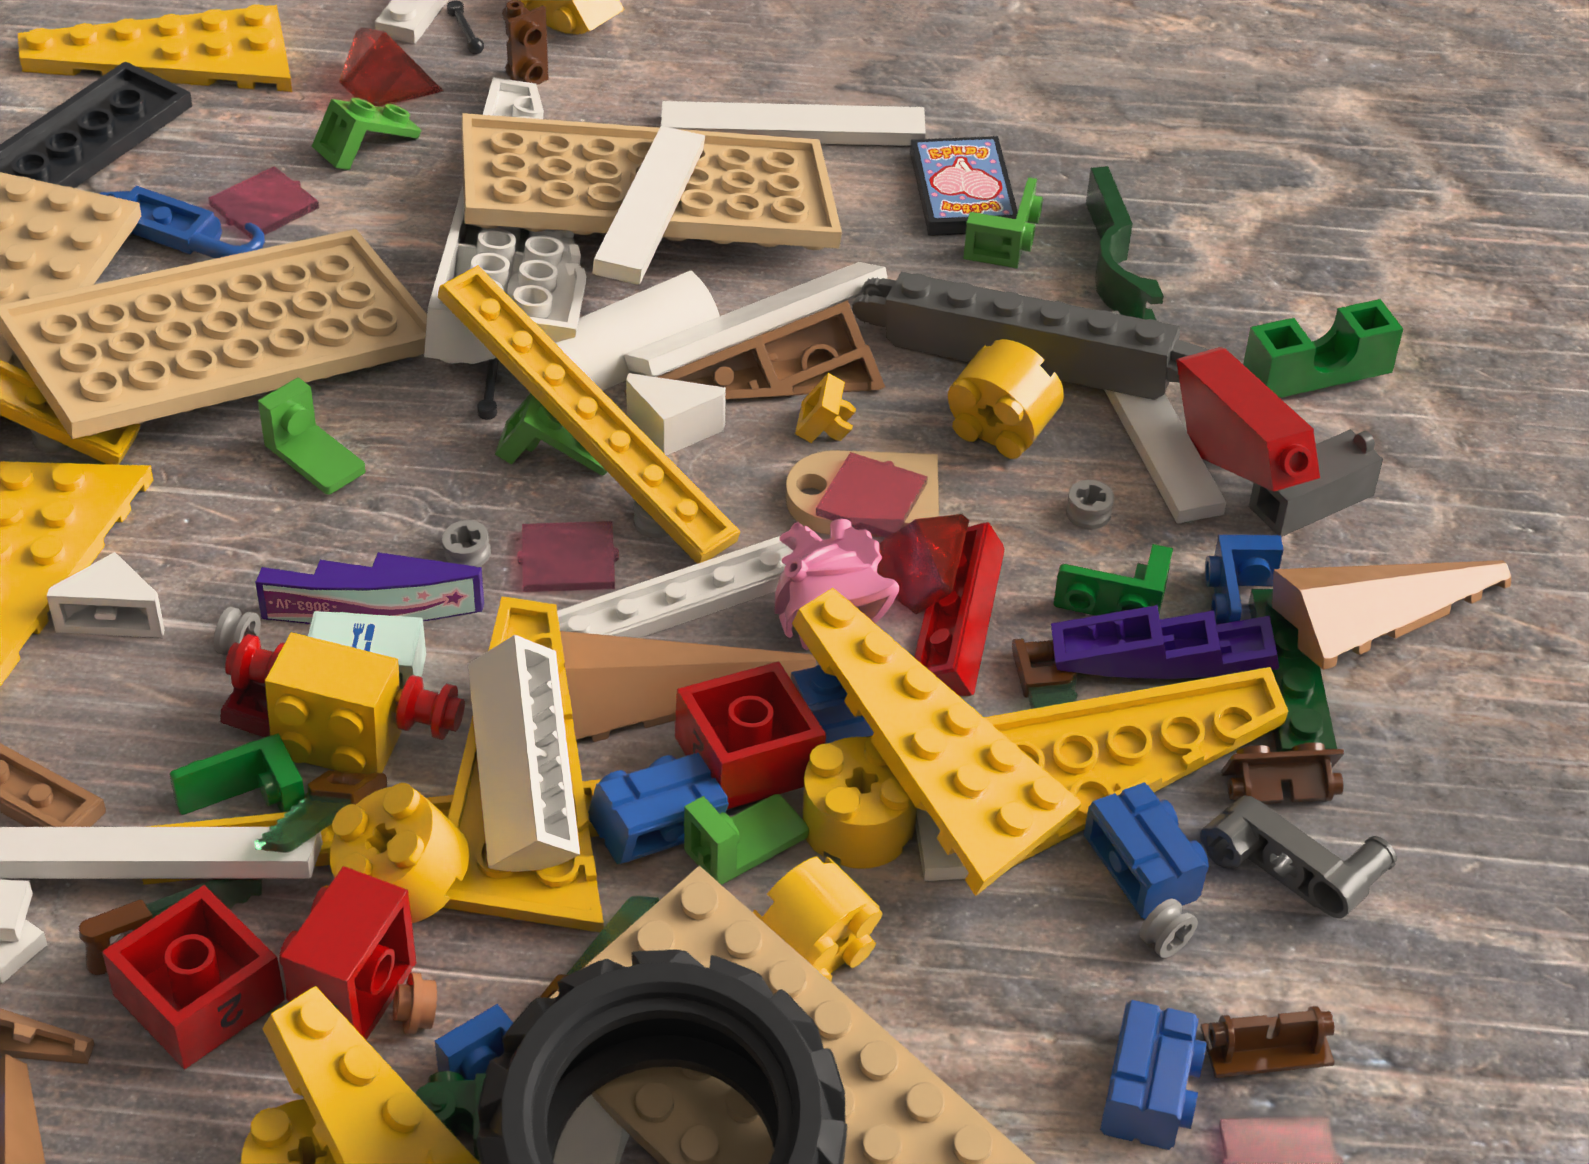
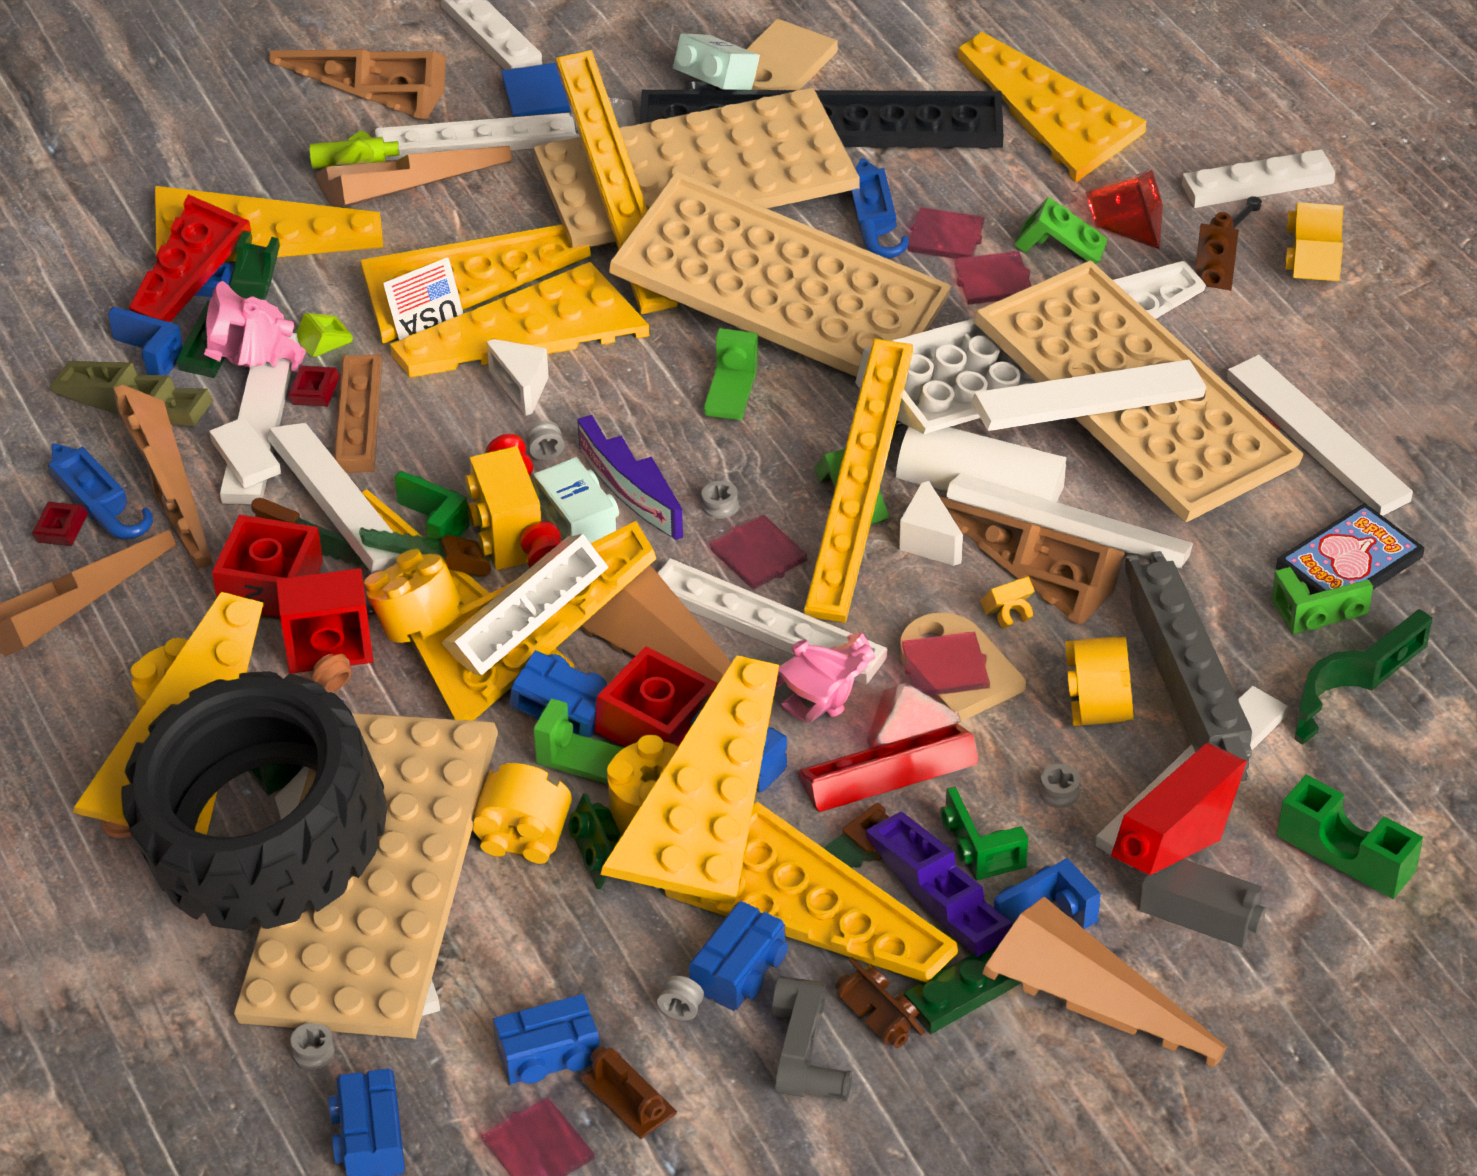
camera: 60 degrees right, 0 degrees up
(361, 204) = (991, 276): none -> clear pink piece
(899, 891) = (595, 835): none -> dark green hinge

